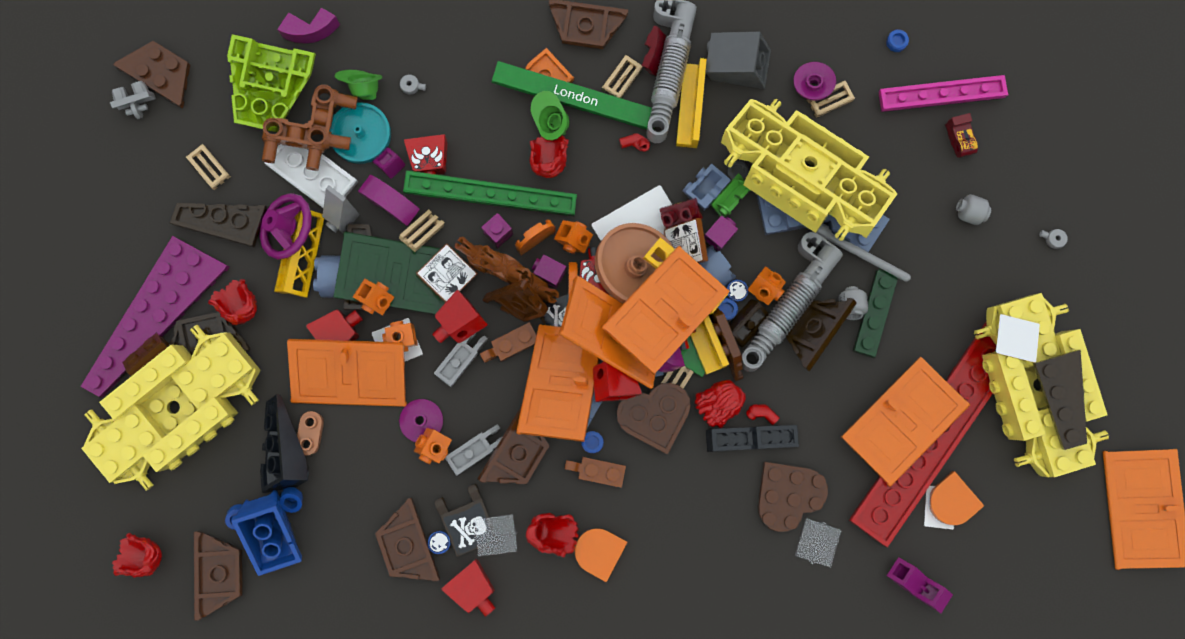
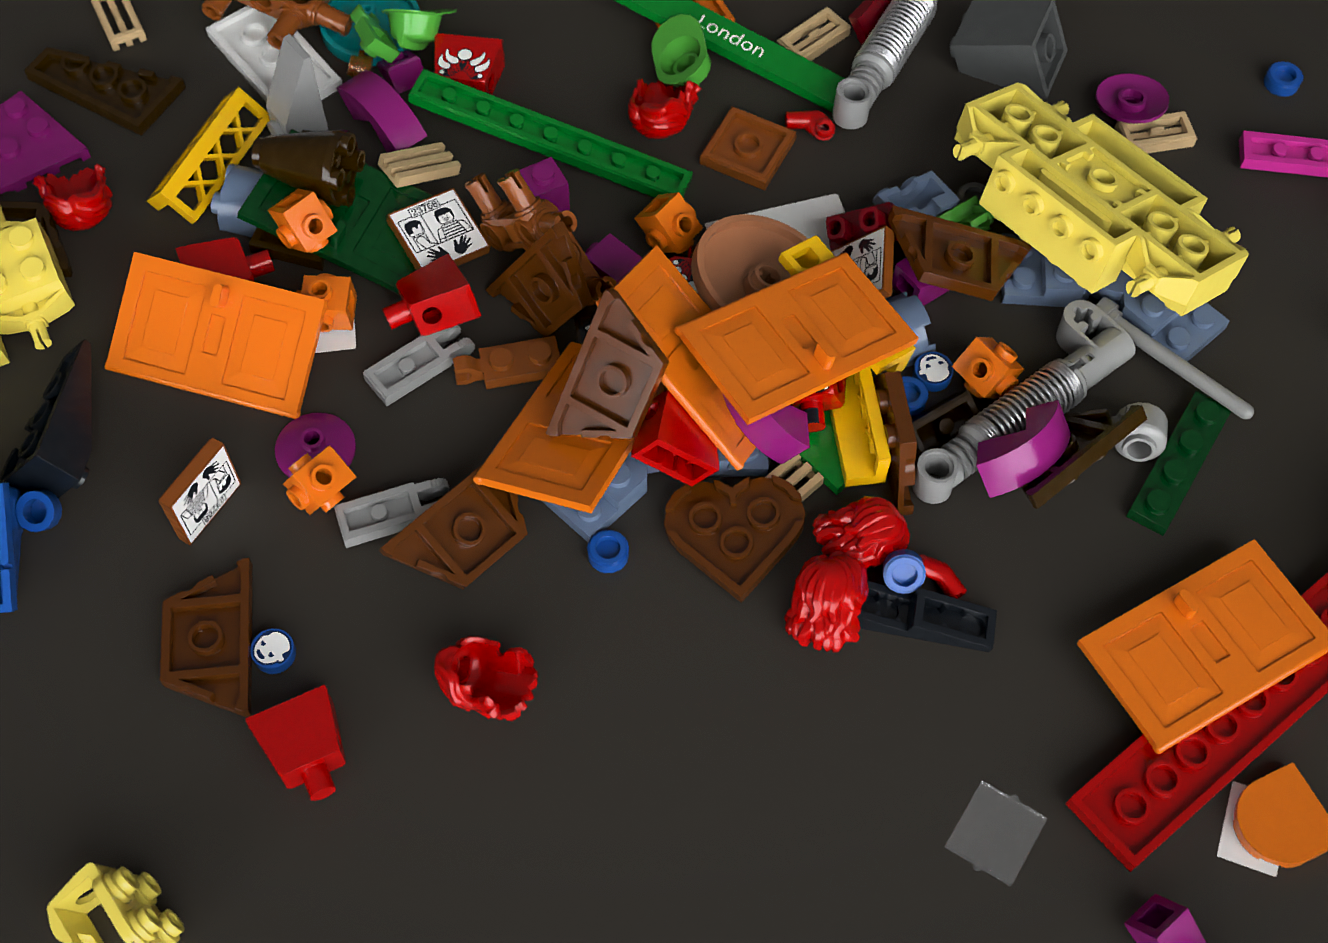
camera: 15 degrees right, 20 degrees down
(282, 225) = (196, 100): magenta piece -> none
(310, 433) = (118, 418): nougat plate -> none
(365, 169) = (359, 63): none -> clear orange plate
(366, 258) = (313, 162): none -> dark brown cone
(368, 150) = (373, 38): none -> bright green plate
(373, 471) = (200, 491): none -> tile
(391, 133) = (415, 27): none -> bright green piece
(460, 521) = (336, 635): flag -> none
(495, 535) = (380, 663): clear piece -> none
(535, 236) = (605, 206): orange tile -> none
(576, 367) = (611, 376): none -> reddish brown wing
(598, 471) = (602, 600): dark orange plate -> none
(599, 552) = (564, 742): orange tile -> none
(603, 167) = (748, 148): none -> dark orange tile
(691, 105) = (917, 93): yellow fence -> none
(712, 447) = (827, 602): none -> red hair
(737, 223) = (956, 254): none -> reddish brown wing
(746, 419) = (903, 571): none -> tile
(789, 493) = (957, 728): reddish brown plate -> none
(793, 346) = (1024, 455): none -> magenta brick

